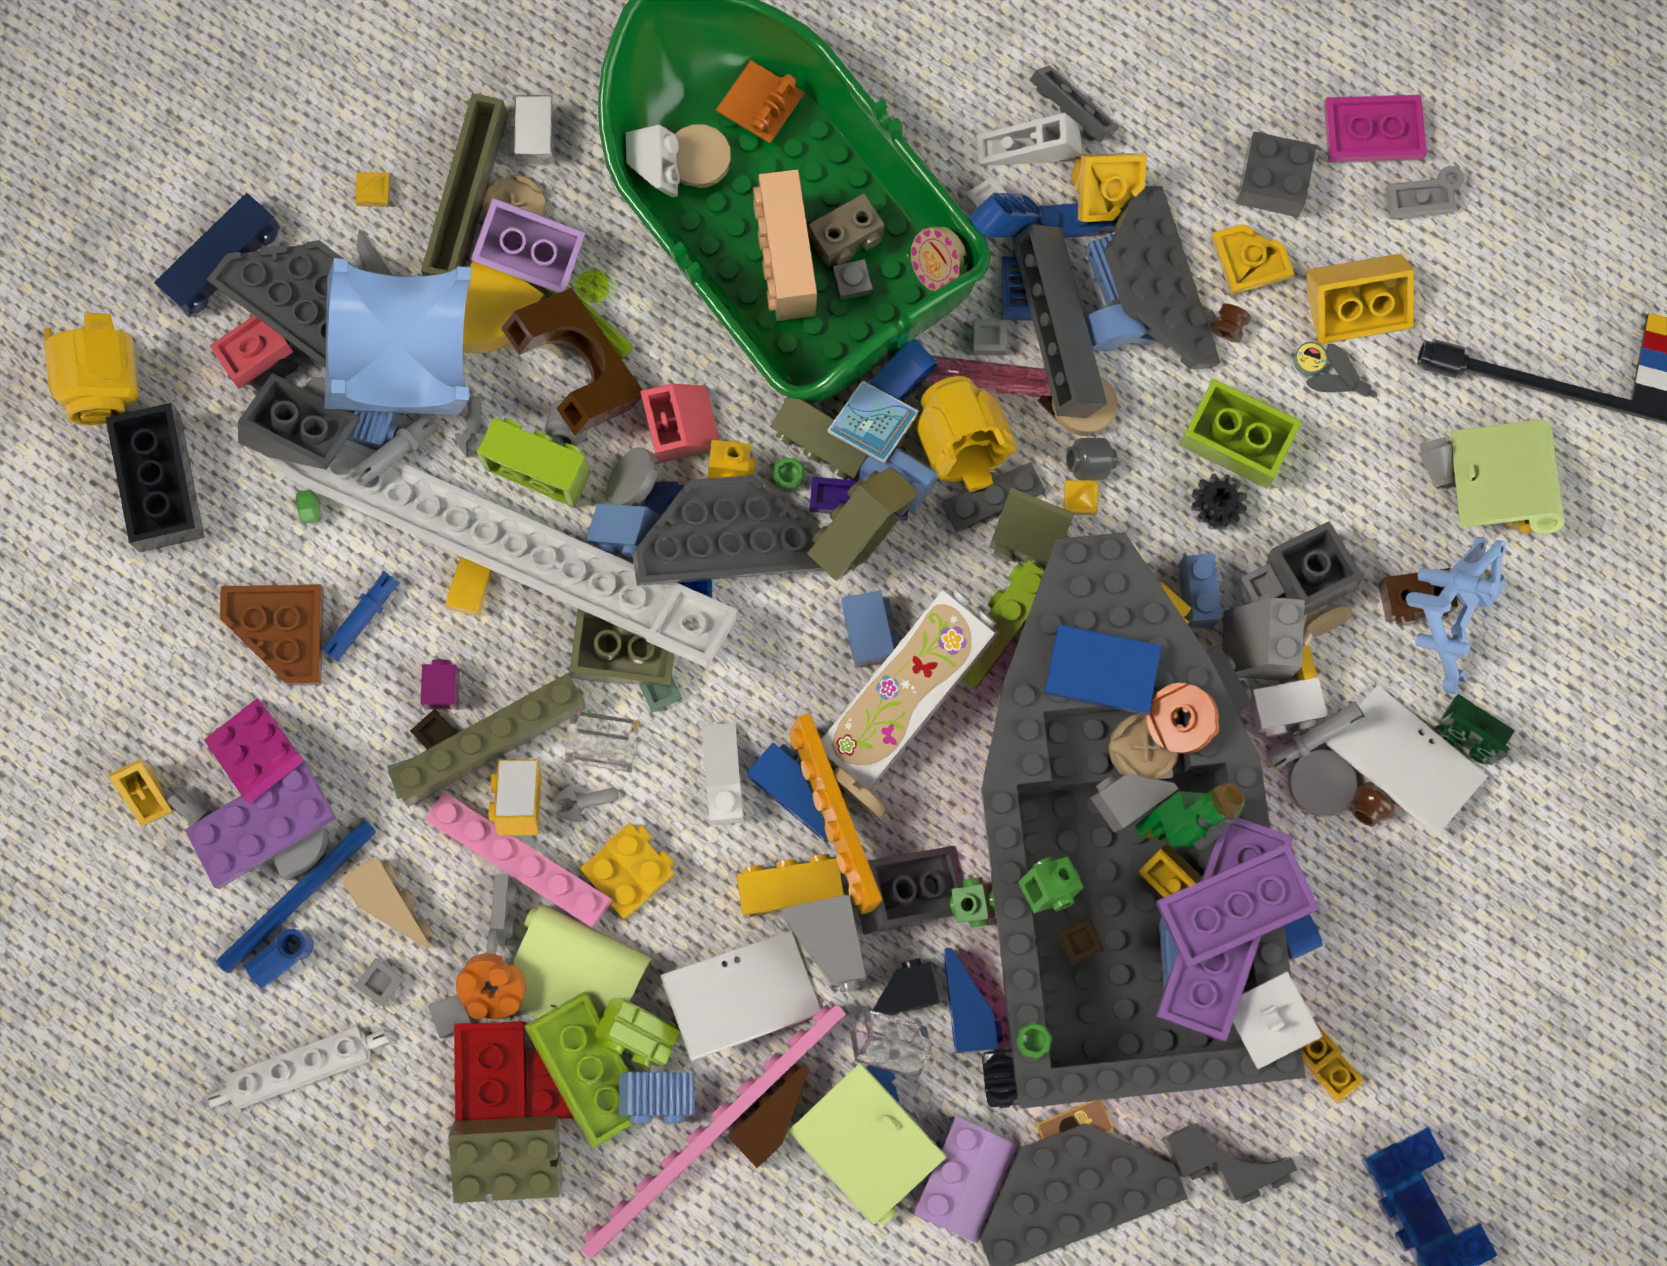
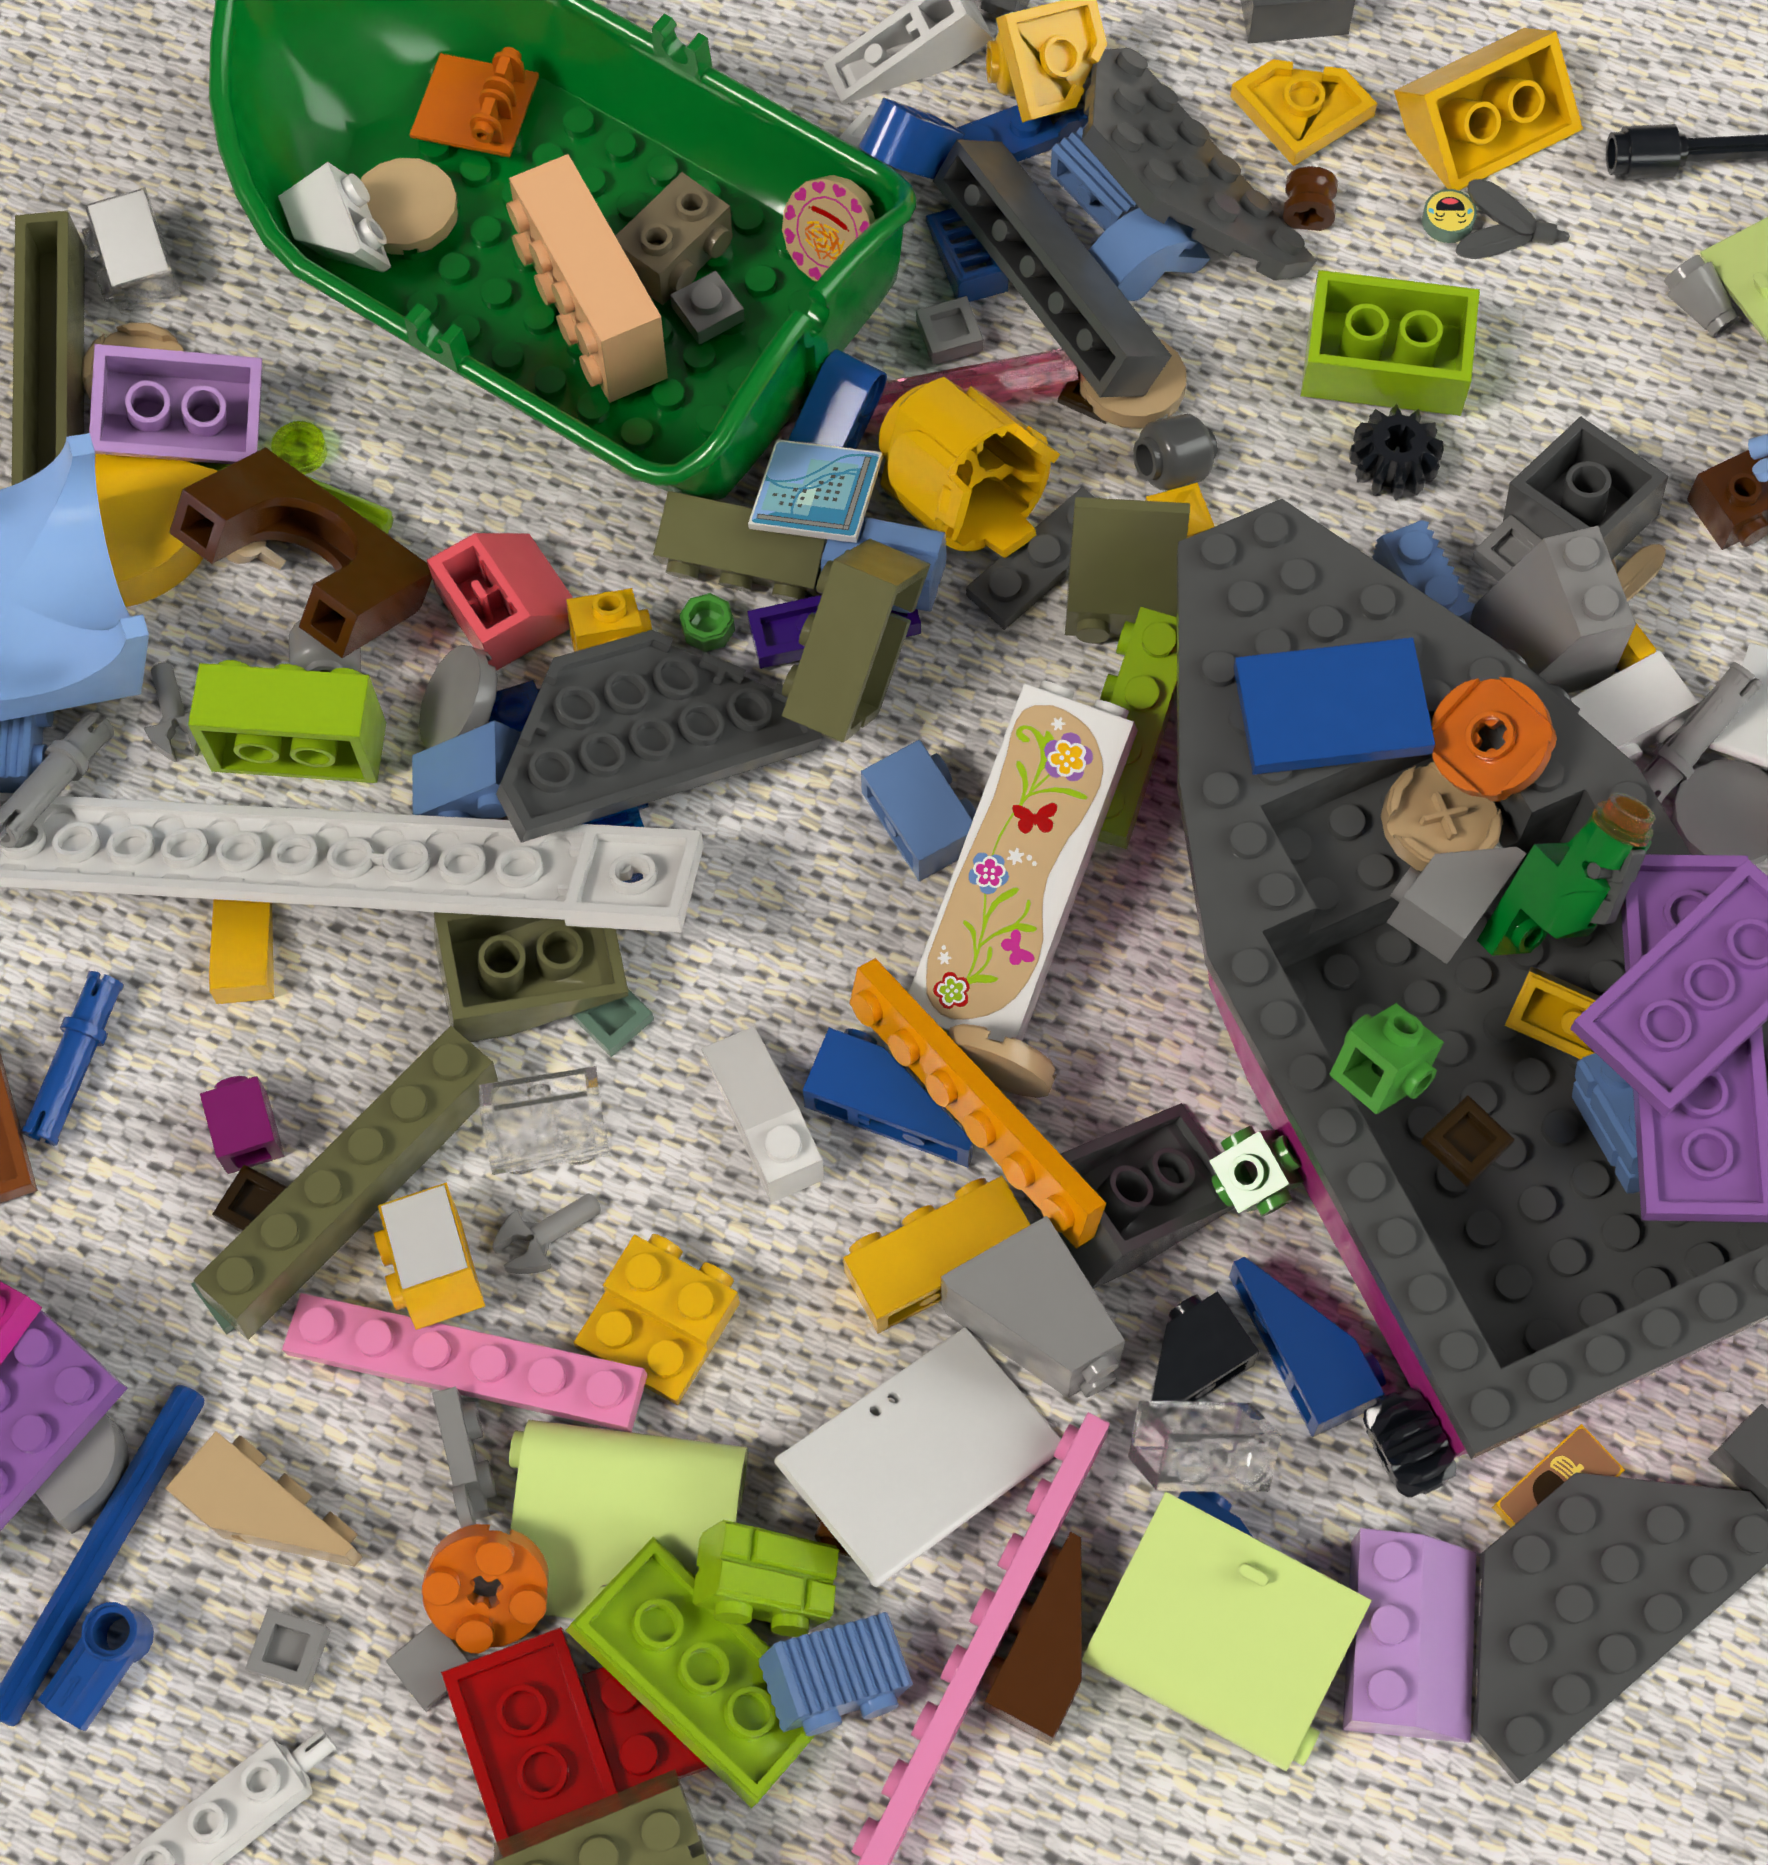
camera: 15 degrees left, 10 degrees down
(1033, 1040) = (1457, 1325): bright green tile -> none

